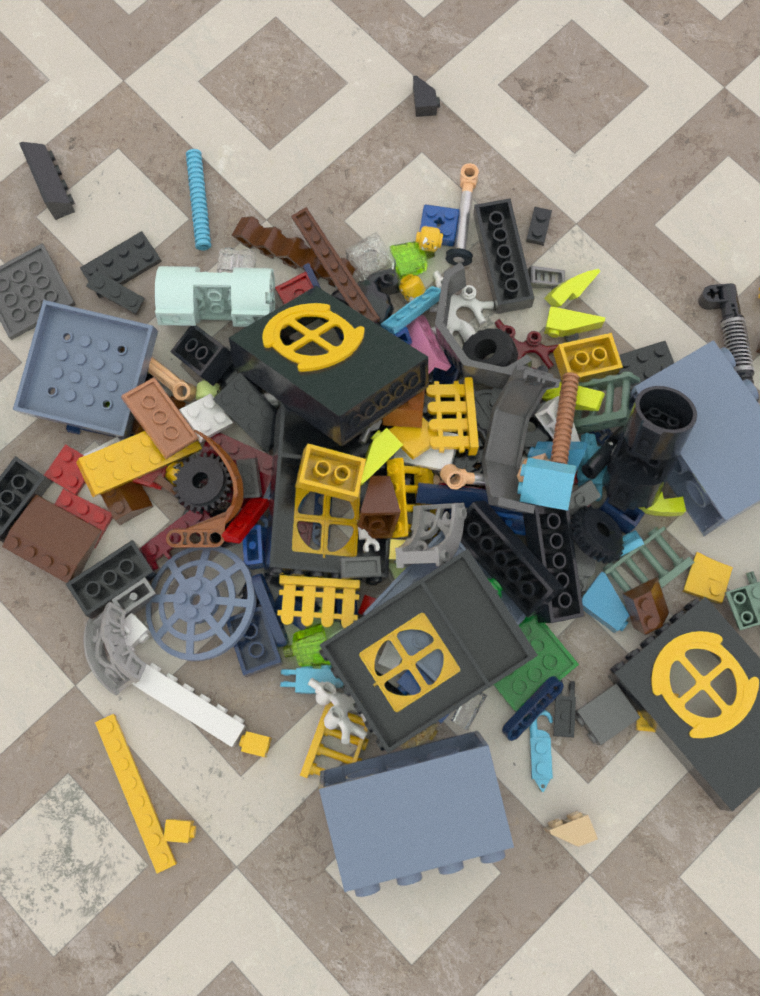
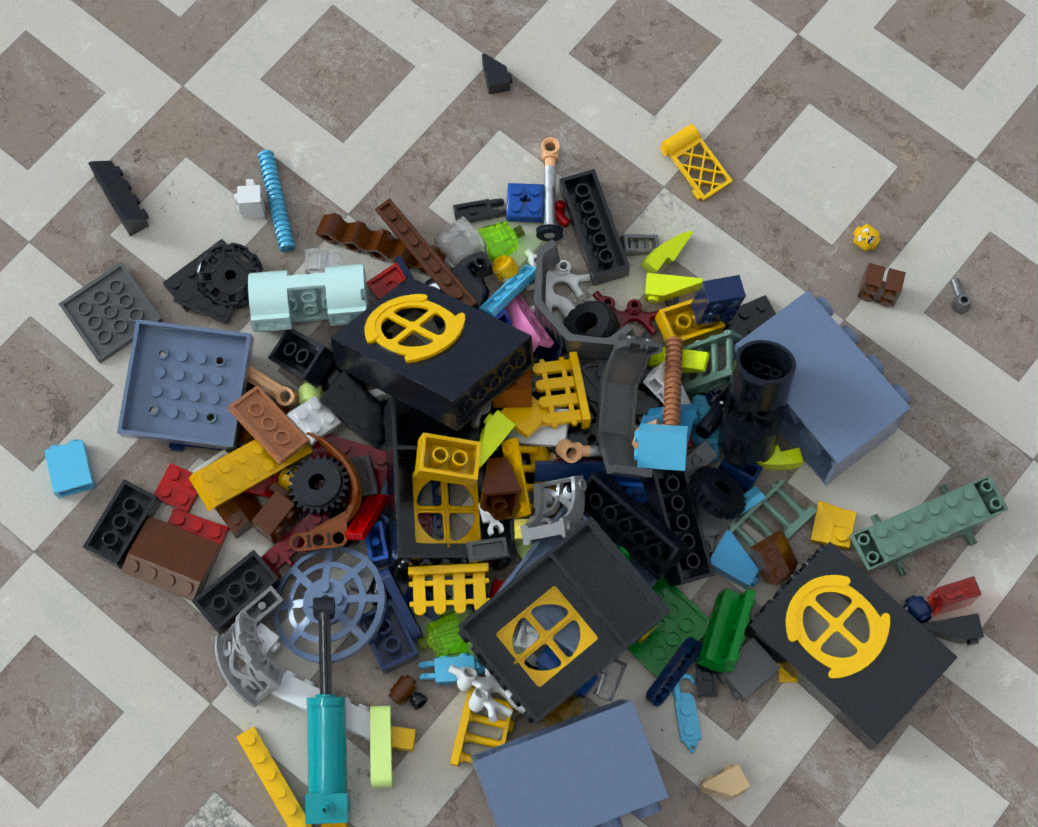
camera: 10 degrees left, 5 degrees down
(135, 259) = (221, 267): none -> black plate
(158, 509) = (275, 517): none -> reddish brown piece
(172, 196) = (250, 200): none -> white brick
(175, 795) = (326, 735): none -> teal piece
(232, 752) = (381, 747): none -> yellowish green beam
(262, 694) = (402, 689): none -> reddish brown brick
(277, 707) = (418, 701): none -> black hinge
(393, 228) = (479, 210): none -> black hinge
(429, 239) = (517, 217): yellow head -> none
(471, 238) = (559, 214): none -> red arm
(539, 226) = (626, 193): black plate -> none
(590, 674) = (726, 630): none -> green brick
(596, 184) = (679, 145): none -> yellow piece
(620, 340) = (718, 300): none -> dark blue brick
(732, 324) = (830, 271): black piece -> none

